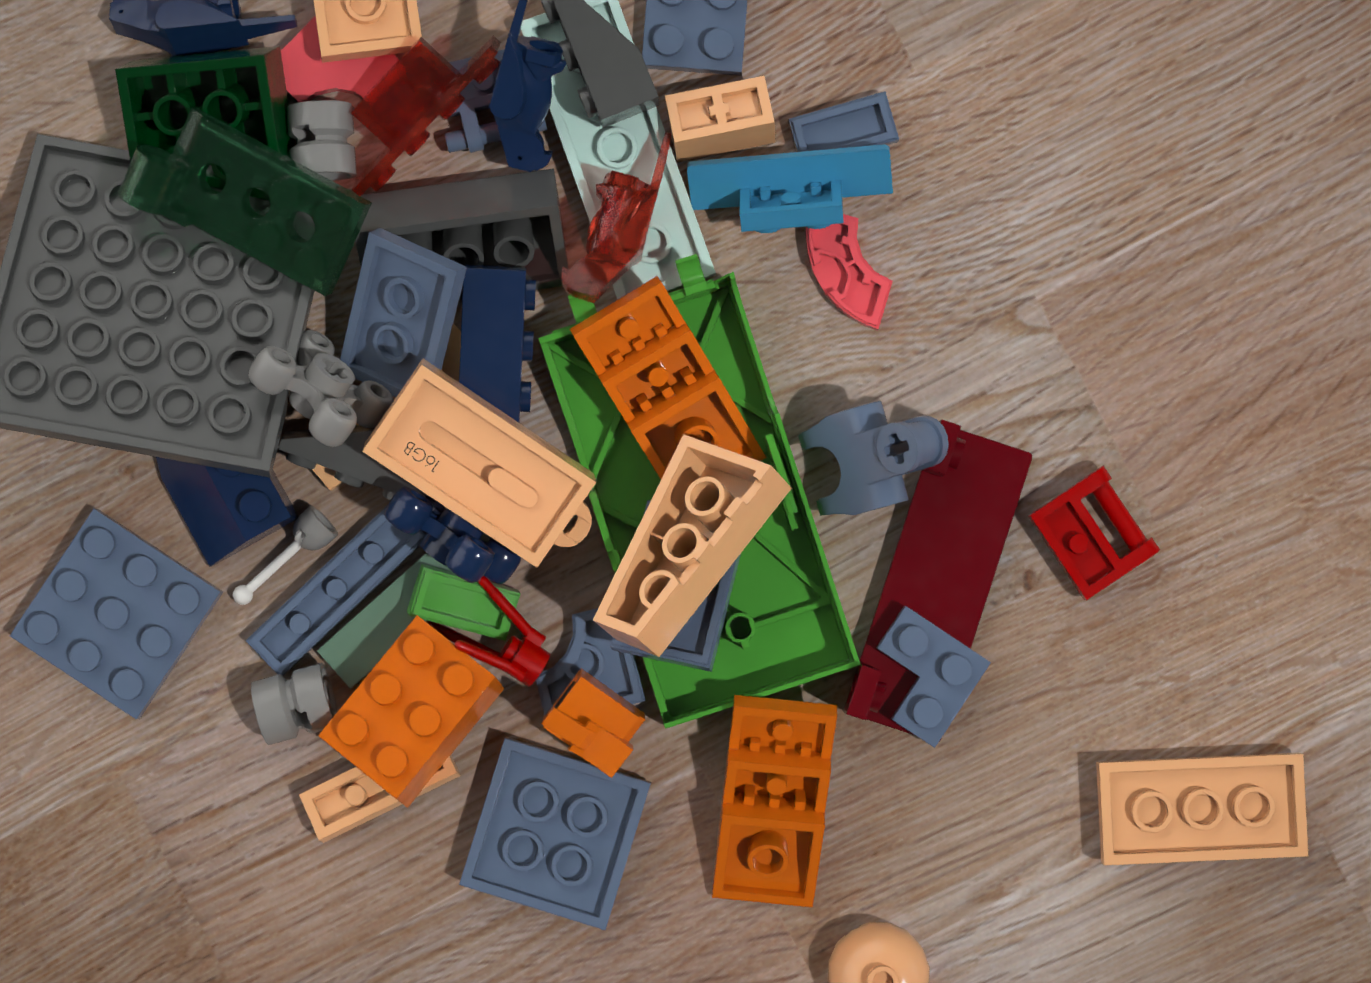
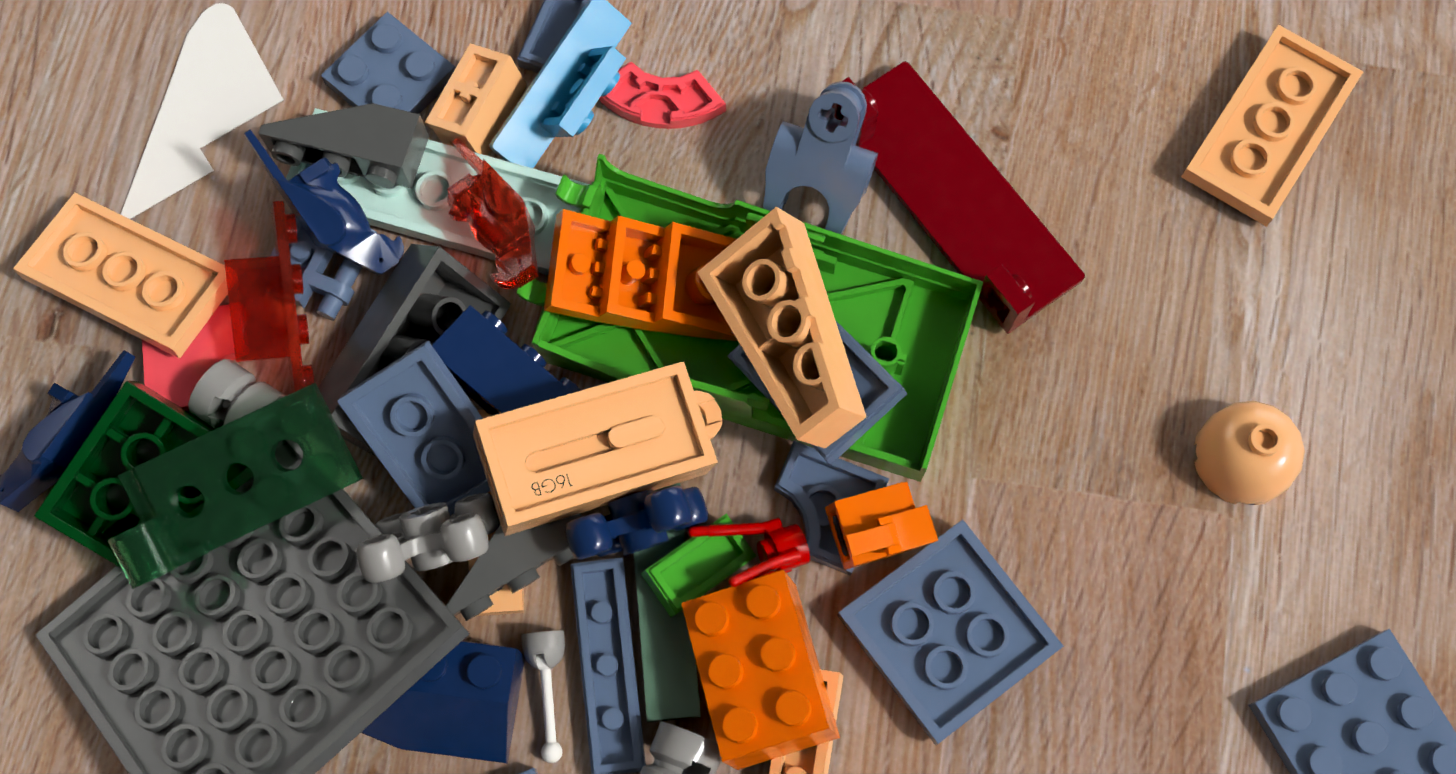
camera: 55 degrees left, 15 degrees down
(774, 800) = (1047, 431): orange slope -> none
(944, 671) = (1028, 230): sand blue plate -> none
(1080, 542) = (999, 72): red plate -> none

